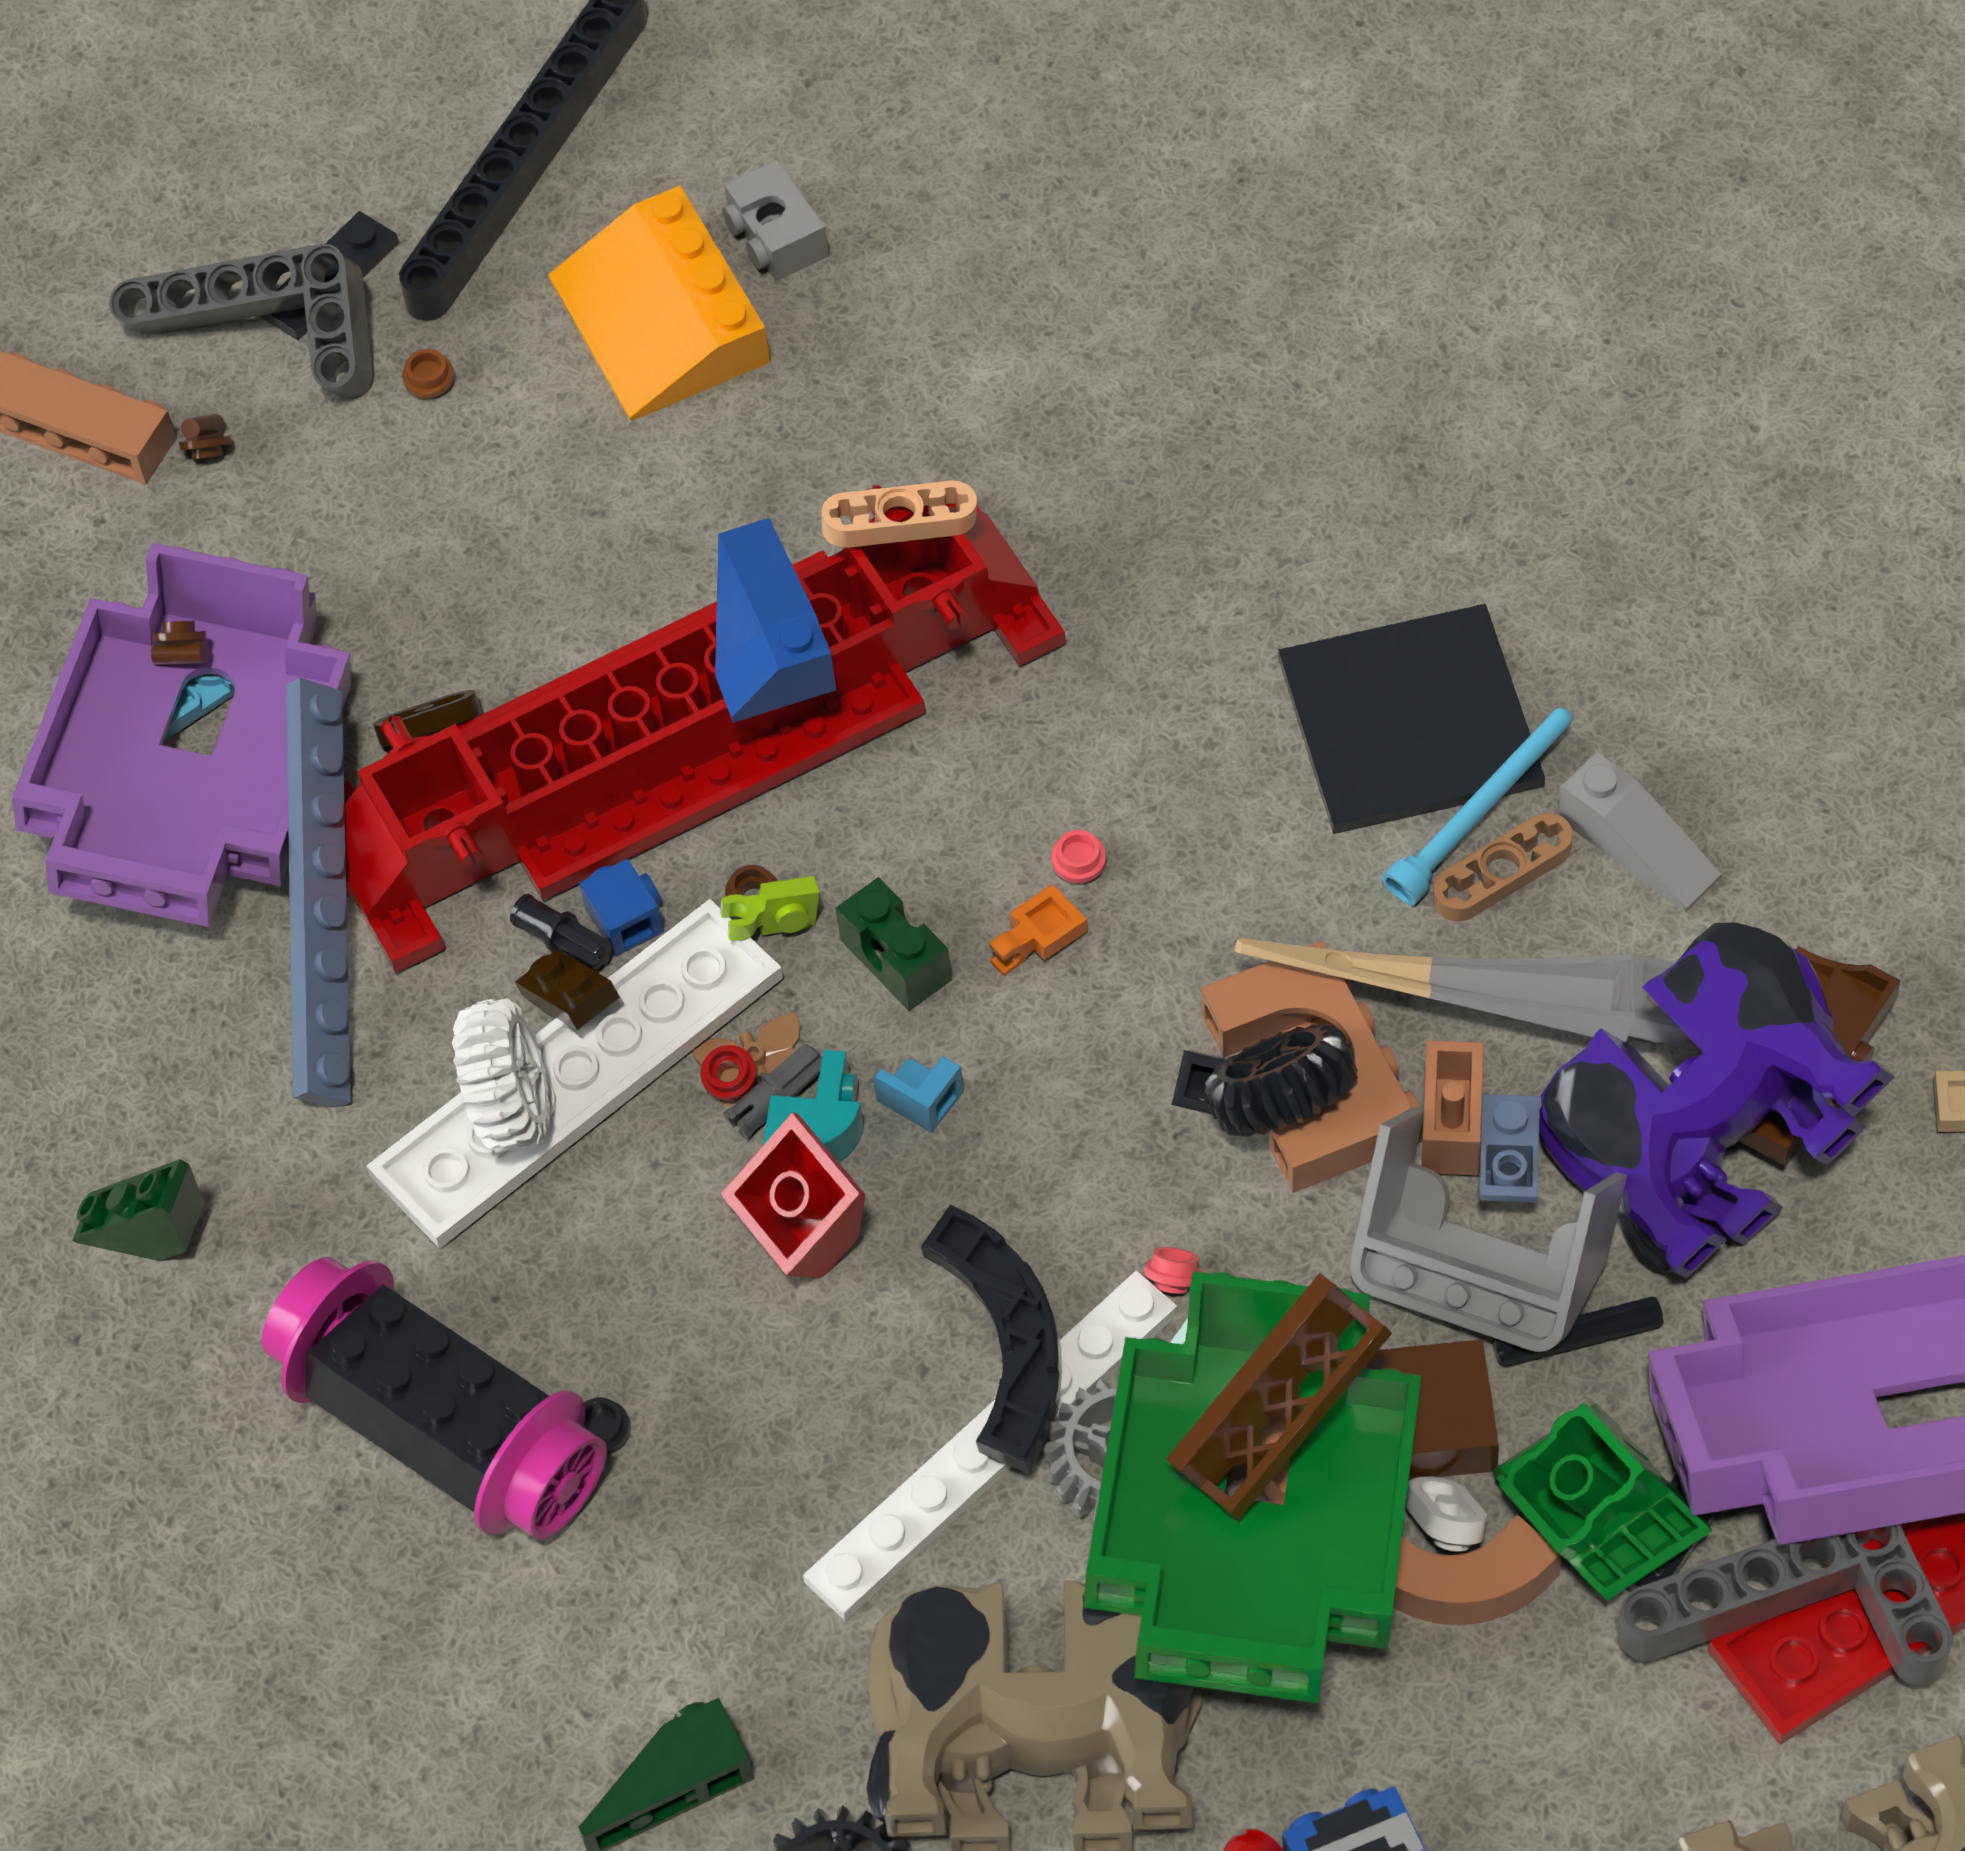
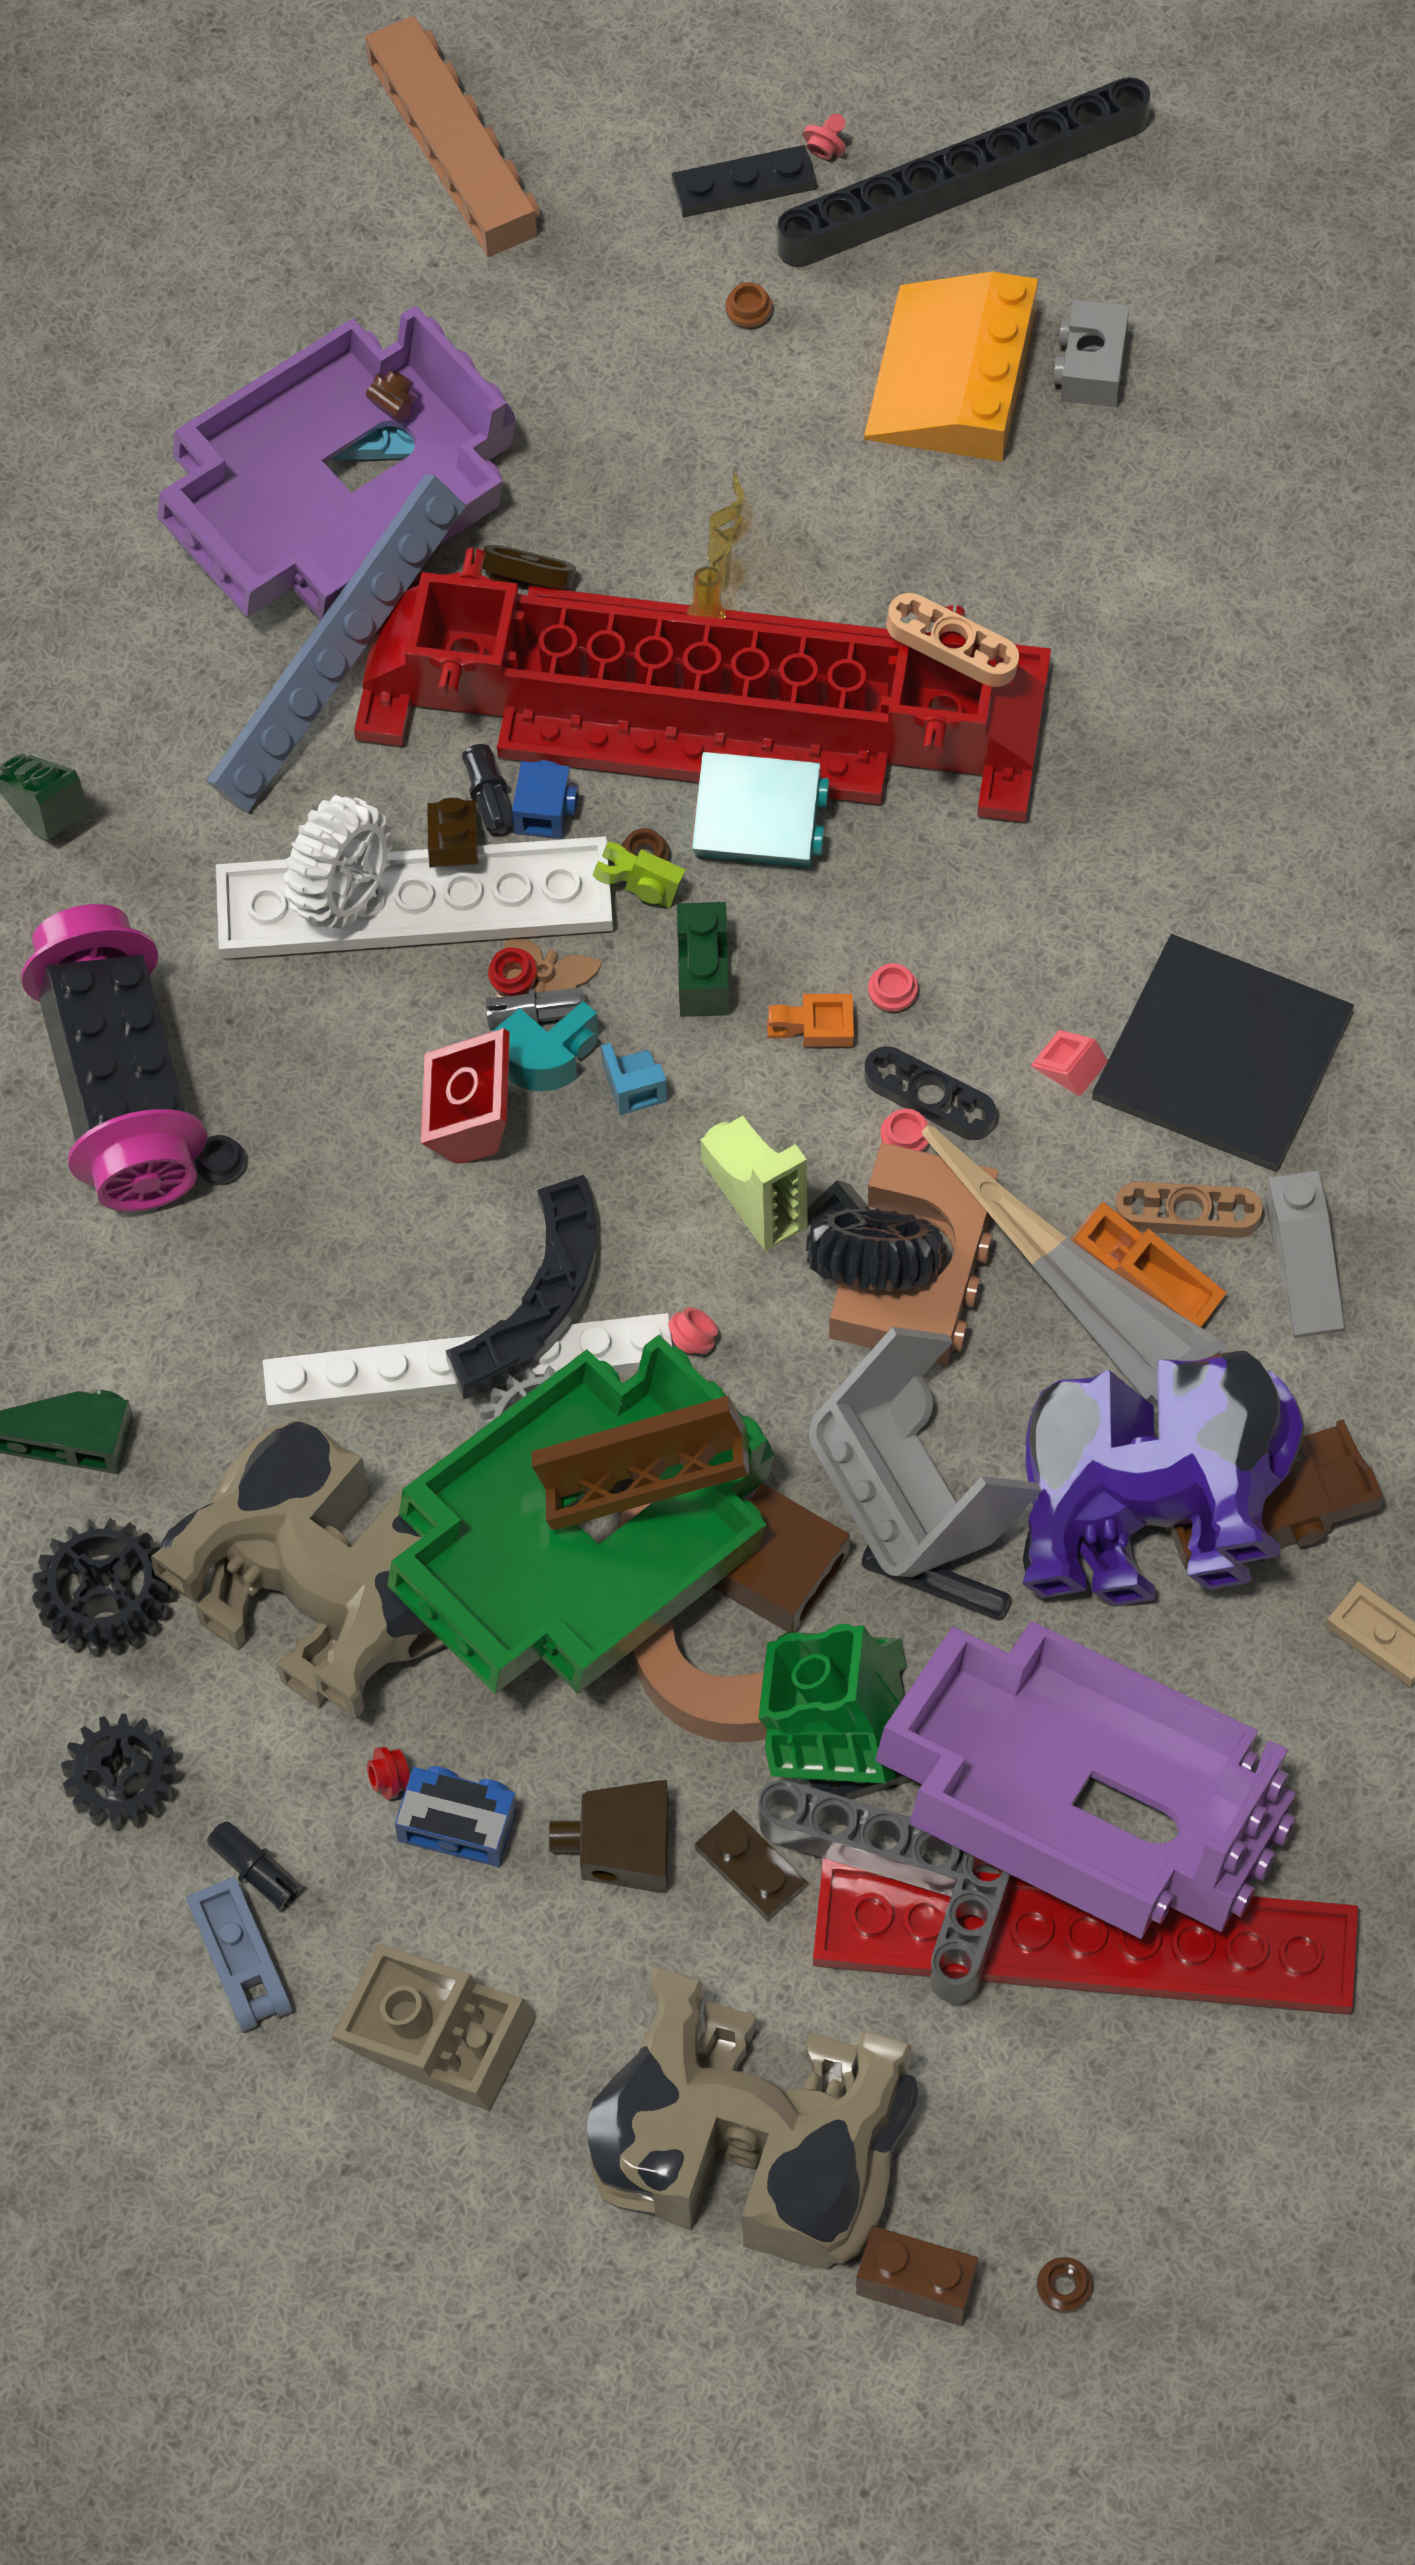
camera: 35 degrees right, 5 degrees up
(204, 436) = (552, 247): reddish brown plate -> none
(260, 297) = (672, 161): dark grey beam -> none
(375, 194) = (824, 140): none -> coral plate
(602, 591) = (714, 580): none -> clear yellow flag
(765, 627) = (791, 664): blue wedge -> none
(831, 782) = (759, 810): none -> brick
(1119, 1099) = (759, 1183): none -> yellowish green arch
(1199, 967) = (905, 1129): none -> coral plate
(1203, 905) = (892, 1089): none -> black beam
(1286, 813) = (1071, 1061): none -> coral slope
(1411, 877) = (1115, 1168): medium azure piece -> none
(1446, 1512) = (721, 1635): white plate -> none
(1452, 1107) = (983, 1356): nougat brick -> none
(1509, 1148) = (993, 1416): sand blue slope -> none
(1513, 932) = (1148, 1264): none -> orange slope
(1516, 1757) = (619, 1836): none -> dark brown torso
(1646, 1697) = (750, 1865): none -> dark brown plate

